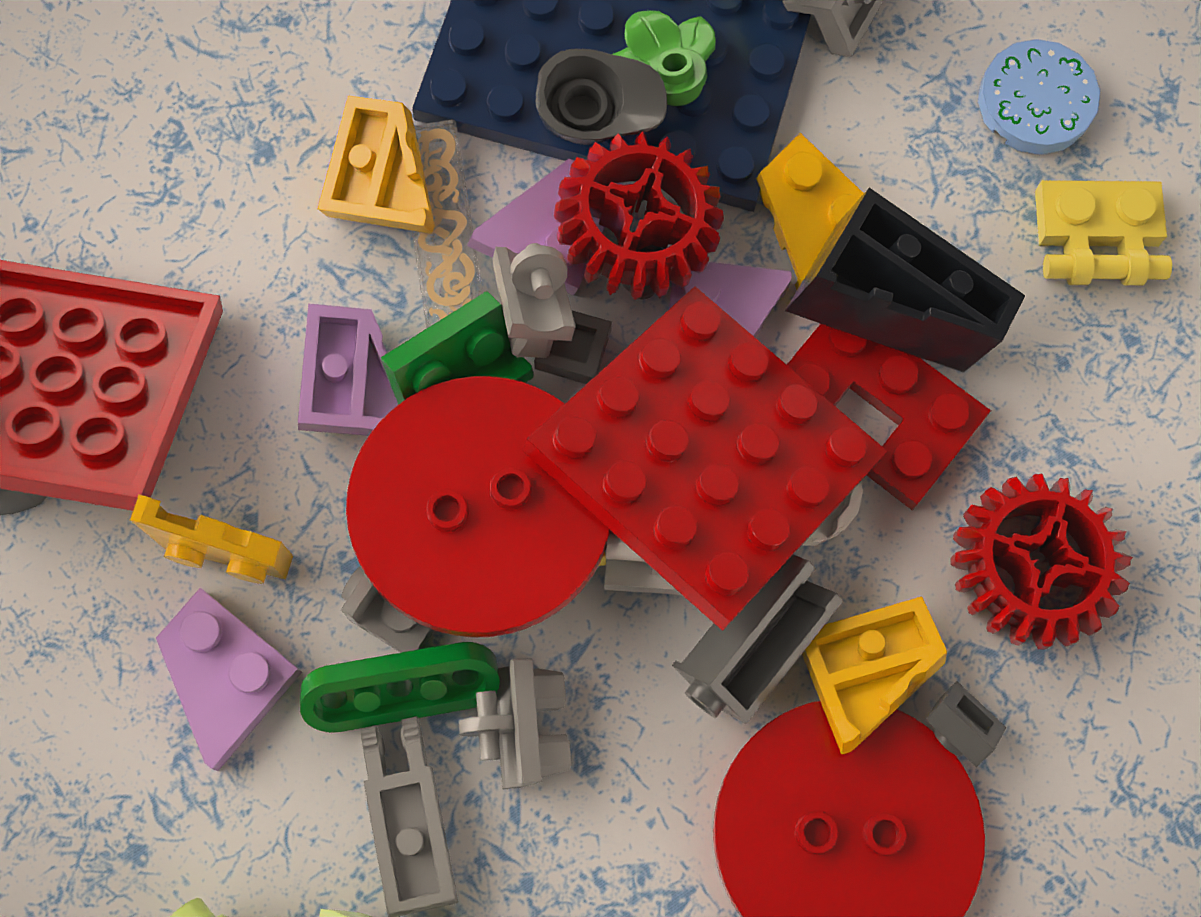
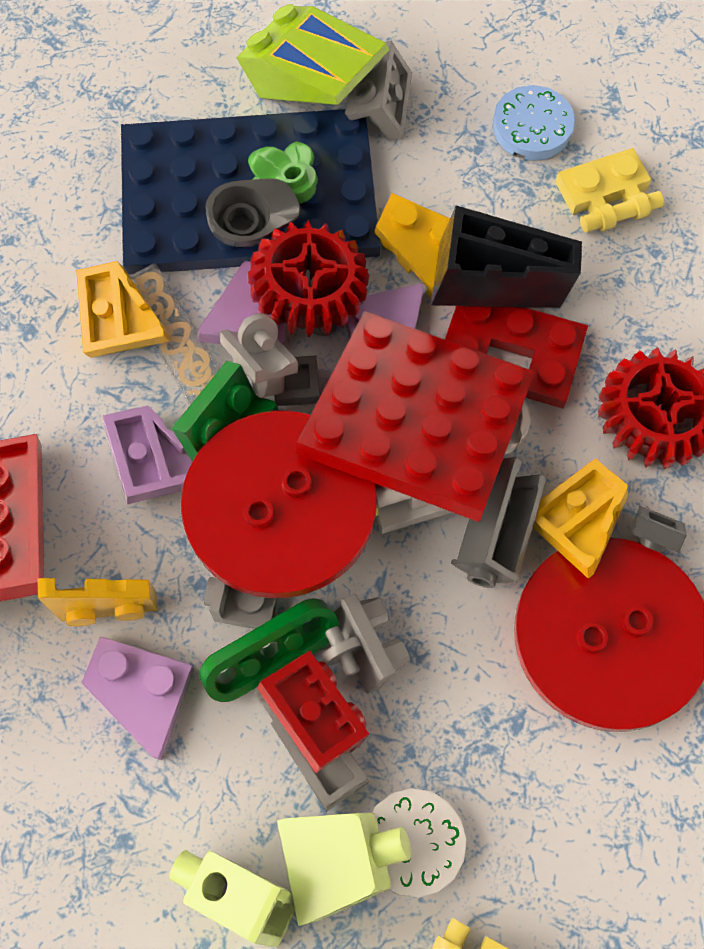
camera: 20 degrees left, 5 degrees down
(420, 789) = (314, 710): none -> red bracket

